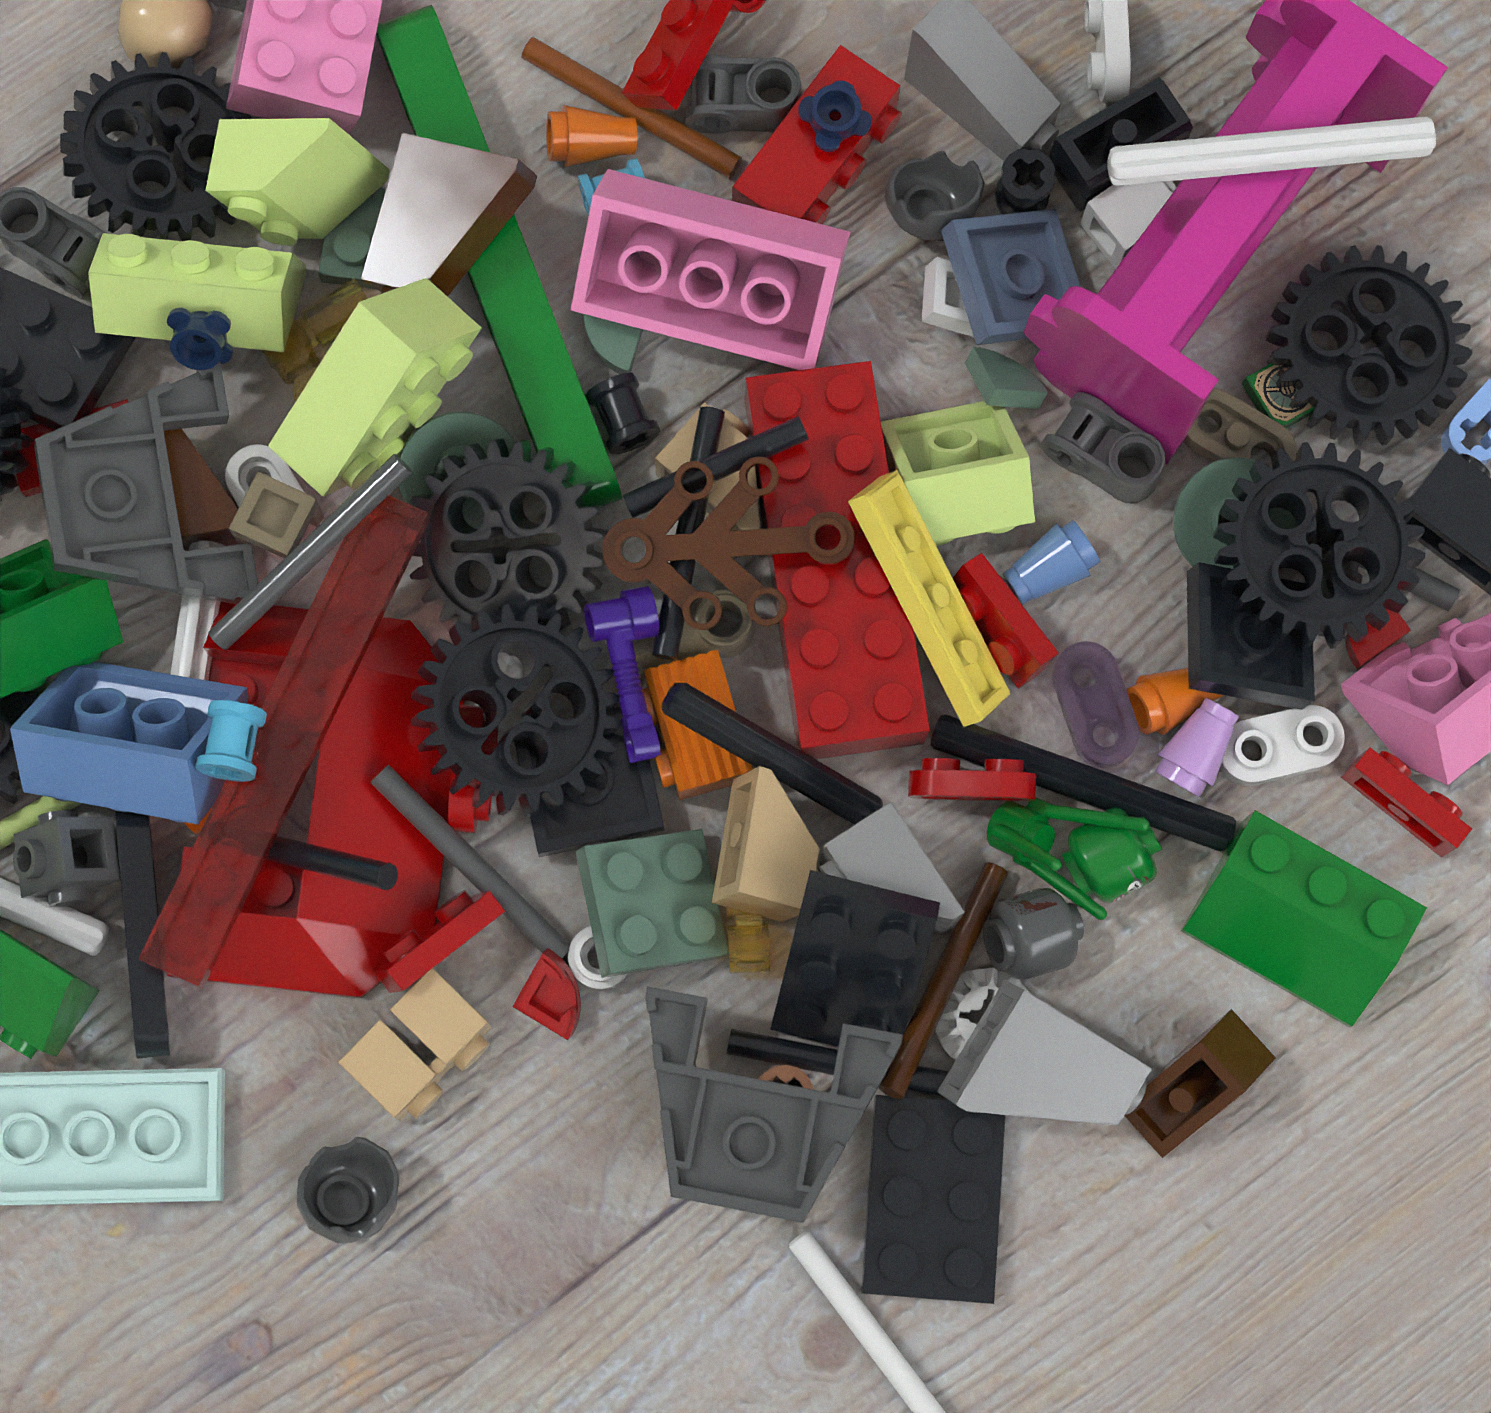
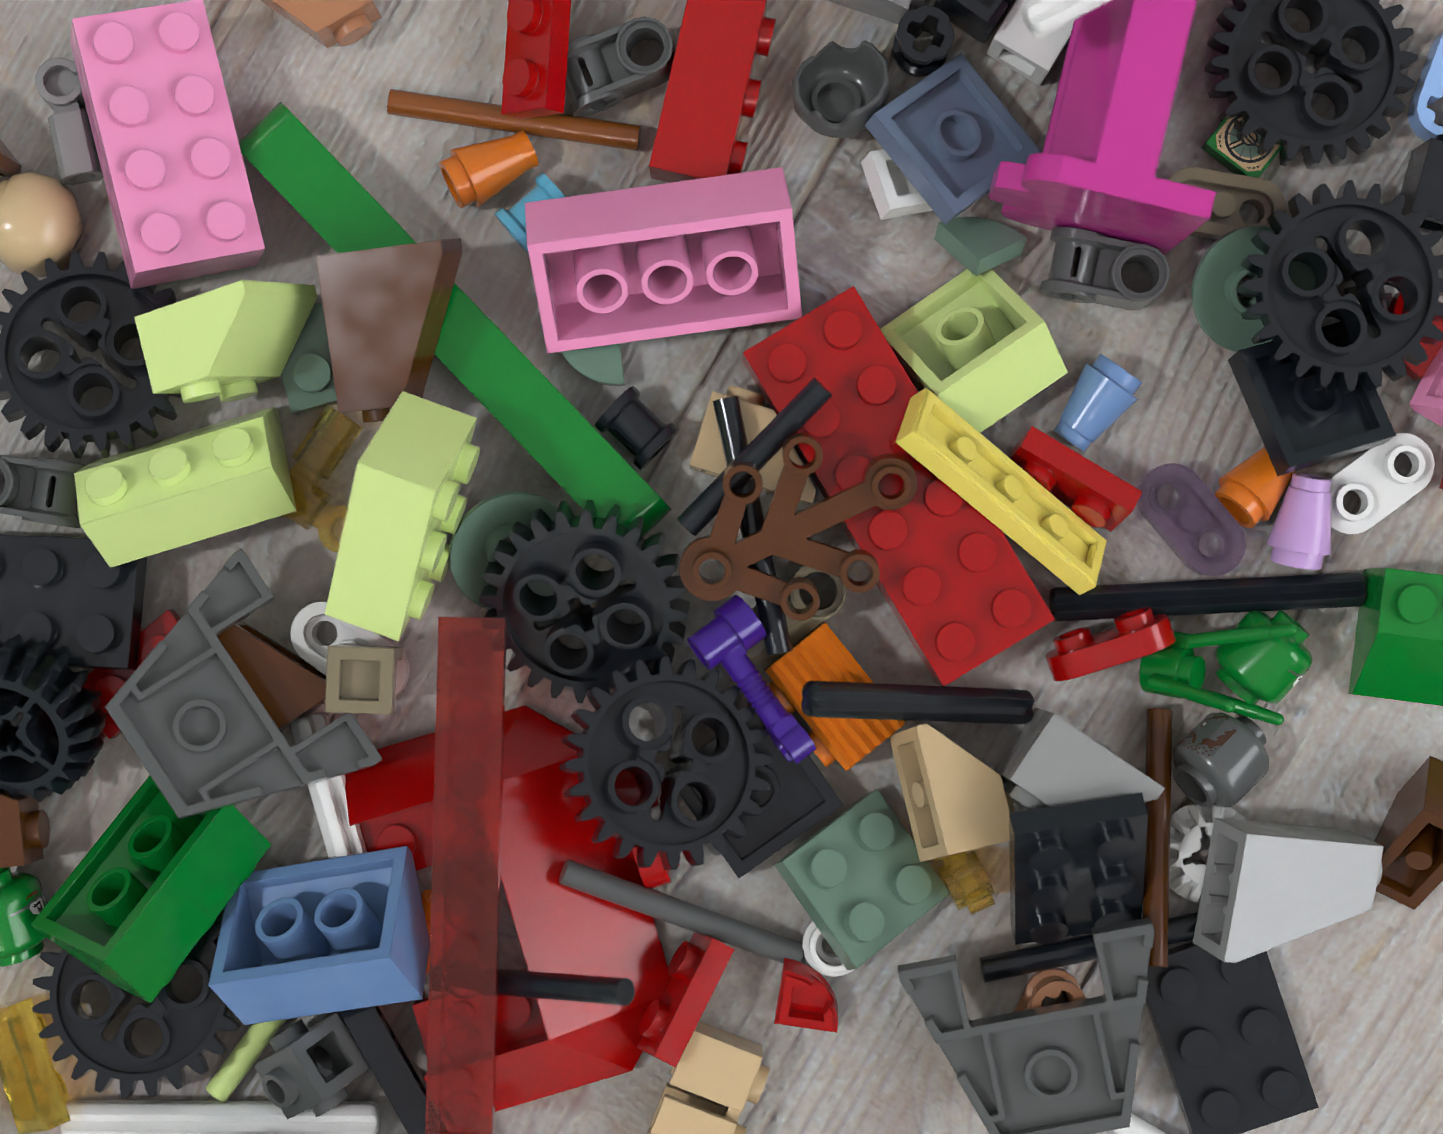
camera: 15 degrees left, 10 degrees up
(199, 338) = (213, 538): dark blue plate -> none
(231, 741) = (421, 919): medium azure bush -> none
(310, 552) = (412, 701): dark grey bar -> none
(838, 98) = (713, 38): dark blue plate -> none

